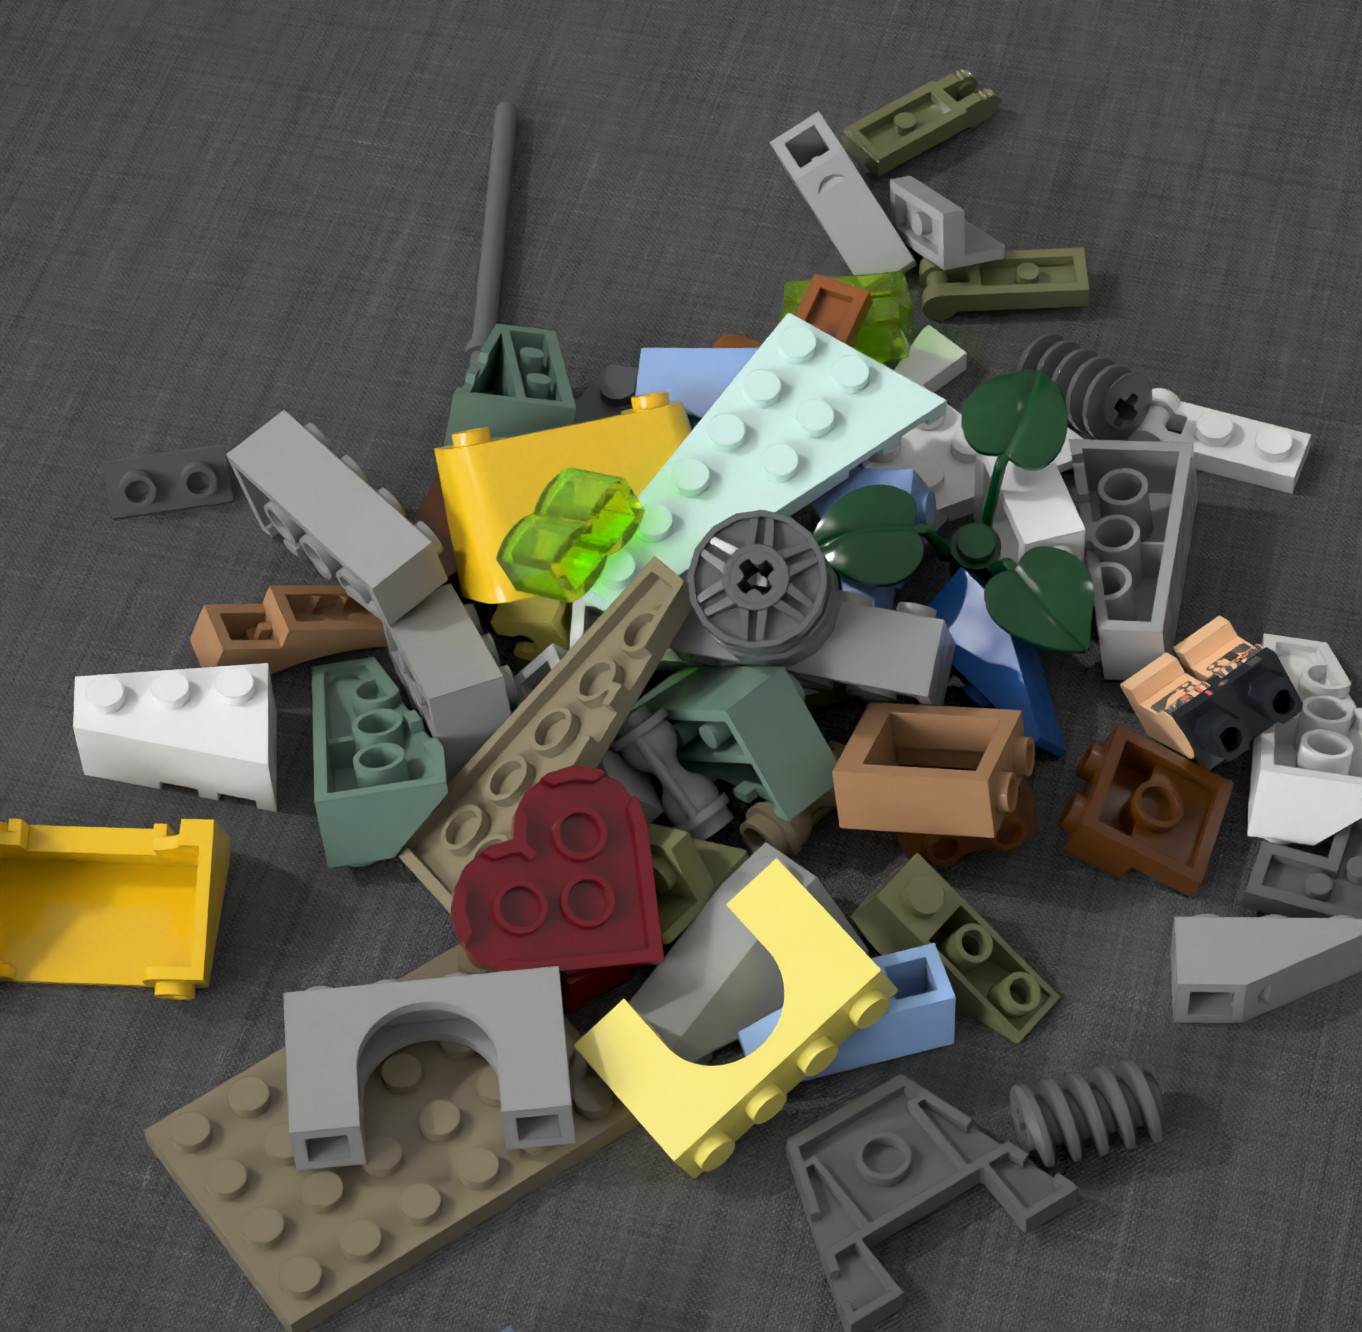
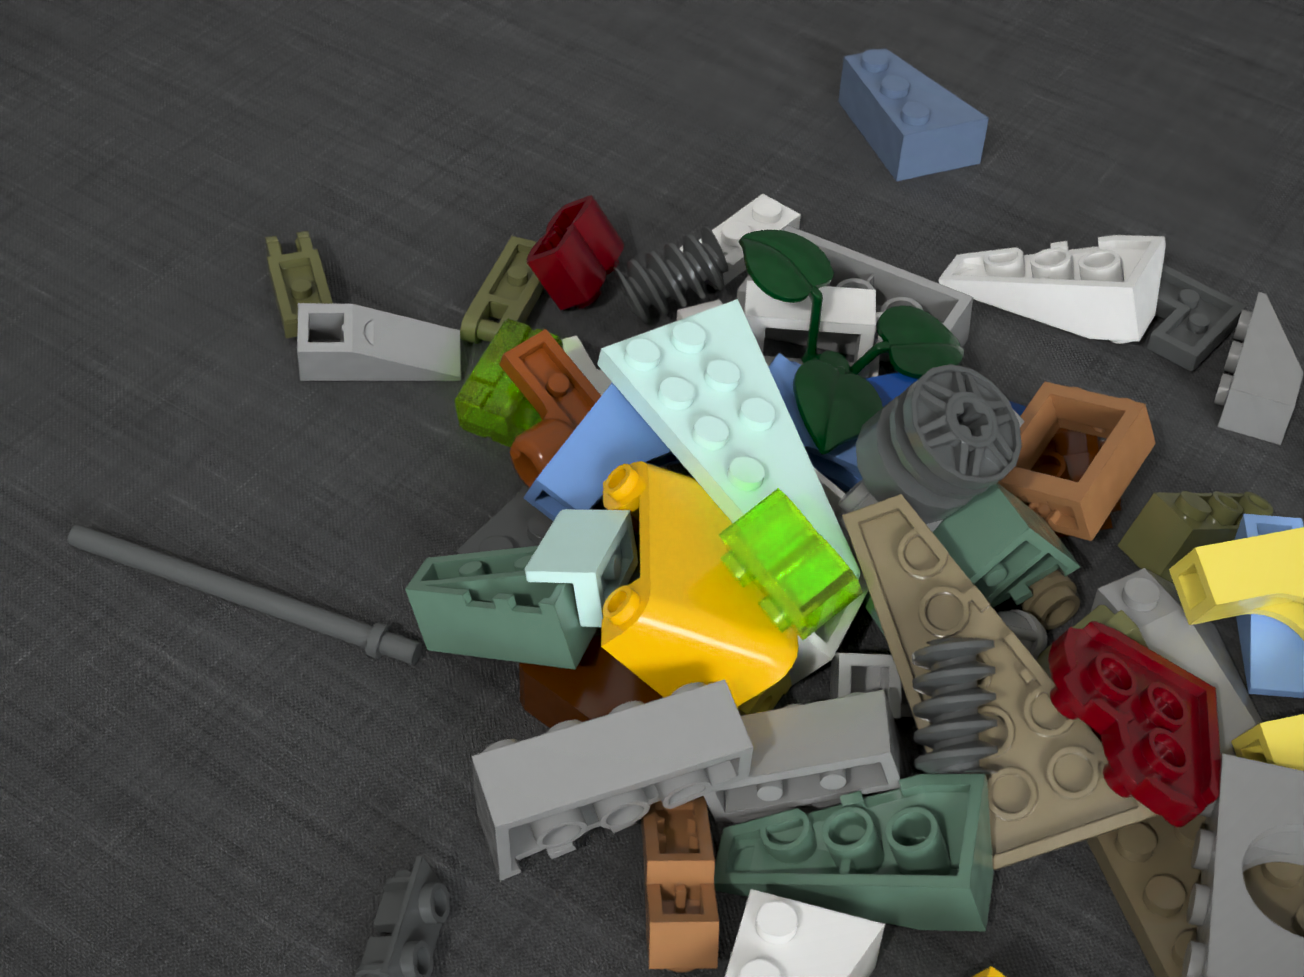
camera: 75 degrees left, 5 degrees down
(493, 726) = (953, 706): none -> dark grey piece
(545, 400) = (590, 551): none -> light aqua panel
(938, 227) = (449, 293): light grey panel -> none
(1077, 302) = (576, 253): none -> dark red brick
(1145, 811) = (1103, 370): reddish brown plate -> none
(1222, 699) = (1036, 297): hips -> none

